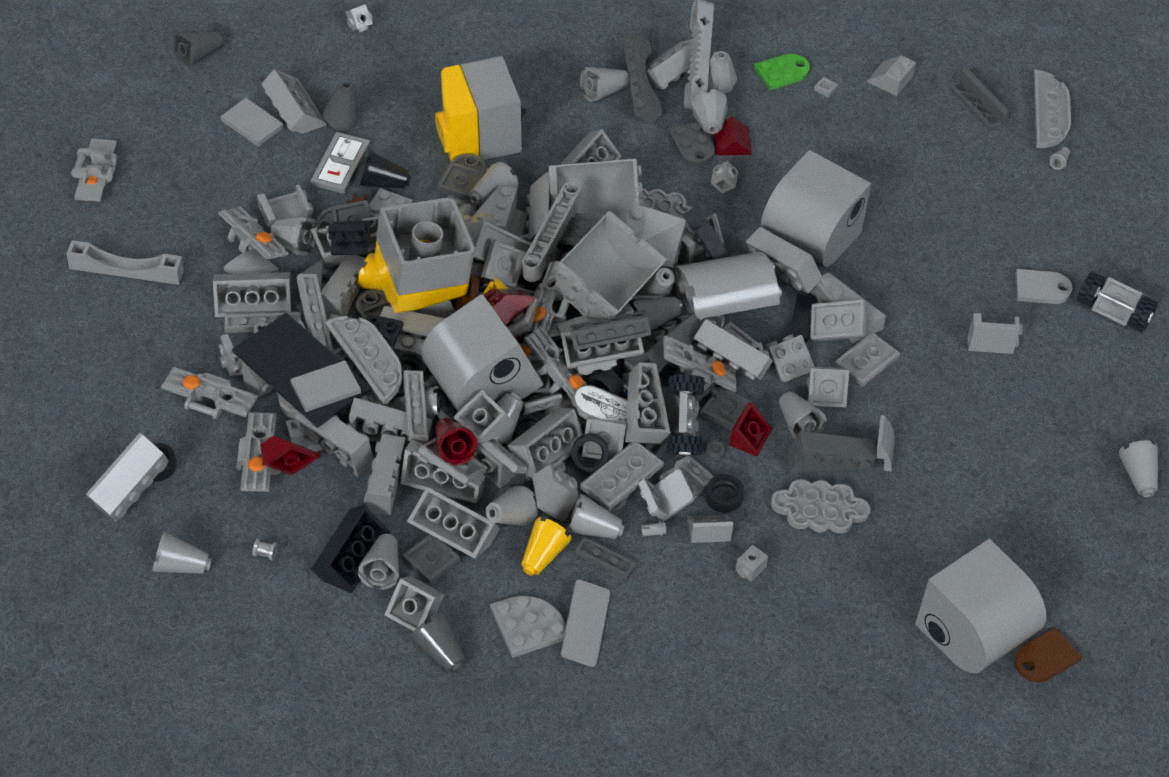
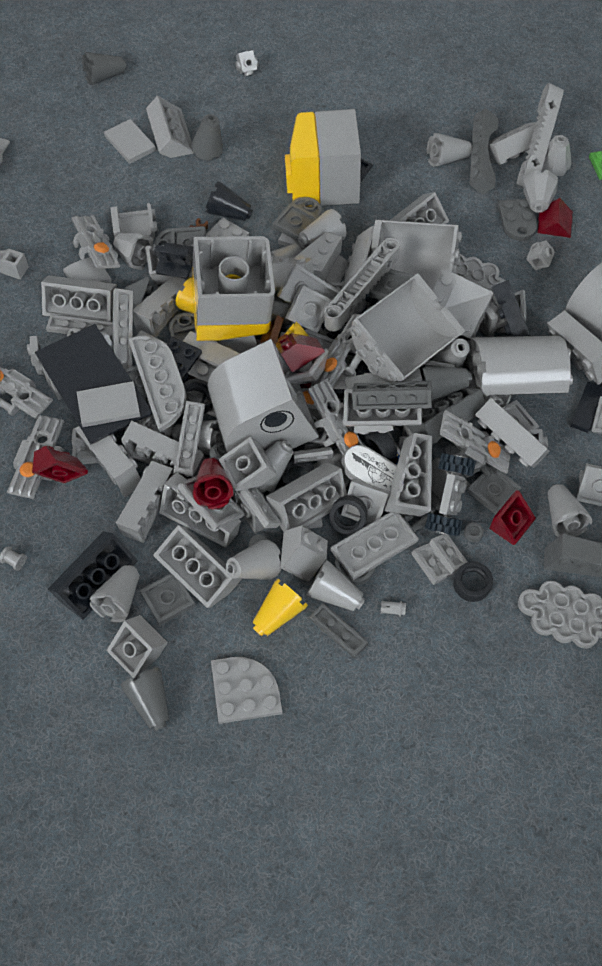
camera: 15 degrees right, 10 degrees up
(340, 162) = (194, 189): tile -> none
(585, 623) = (300, 701): light grey piece -> none
(667, 495) = (414, 575): light grey bracket -> none
(710, 528) = (451, 616): light grey slope -> none
(751, 563) = (484, 667): light grey brick -> none
(790, 357) = (568, 447): light grey bracket -> none

